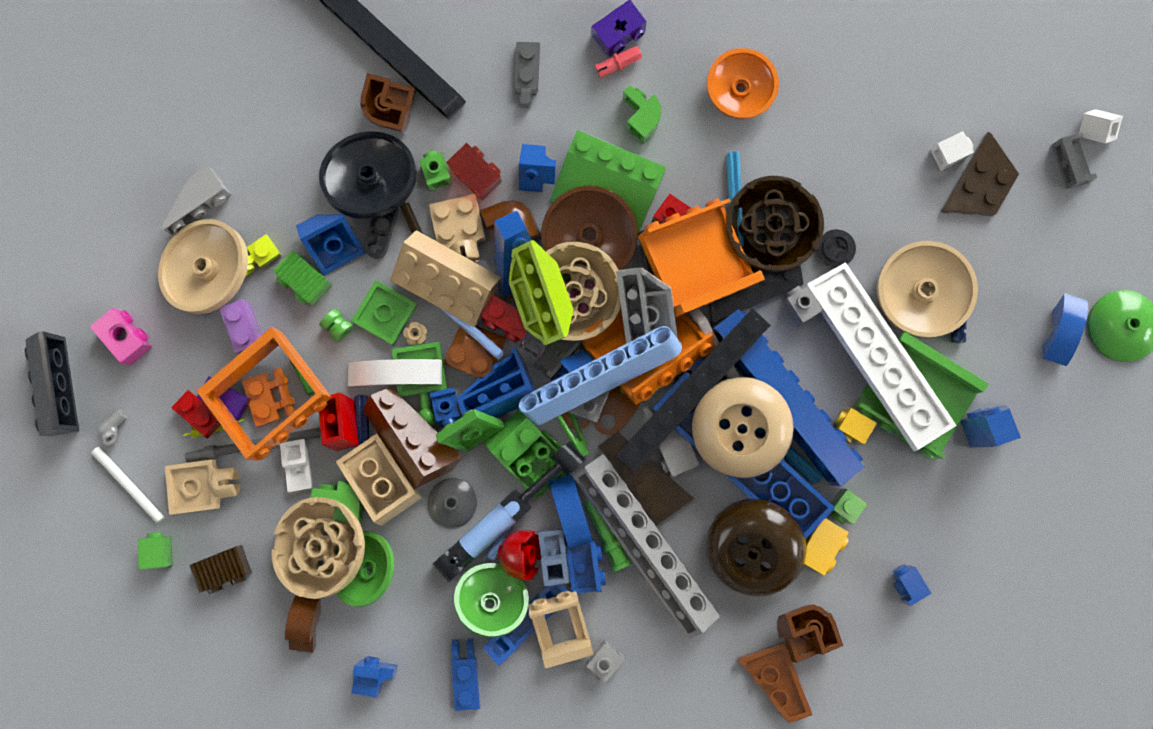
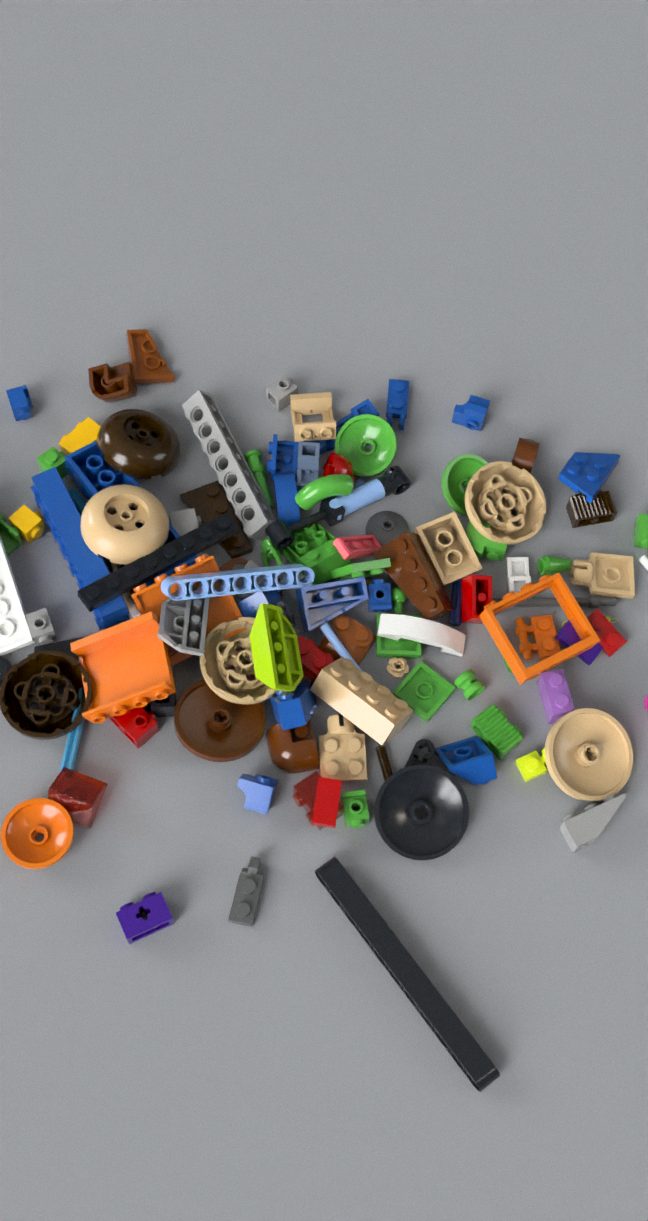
camera: 175 degrees left, 20 degrees down
(226, 615) = (588, 472): none -> blue wing
(261, 486) = (553, 565): none -> bright green cone
(387, 102) = (392, 878): reddish brown brick -> none
(462, 161) = (326, 802): none -> red tile
(477, 459) = (356, 546): none -> coral tile
(527, 520) = (323, 488): none -> bright green cylinder
(608, 166) = (190, 779): bright green slope -> none
(618, 61) = (153, 884): coral axle -> none
(647, 115) = (138, 823): bright green brick -> none
(714, 133) = (78, 795): none -> clear red slope

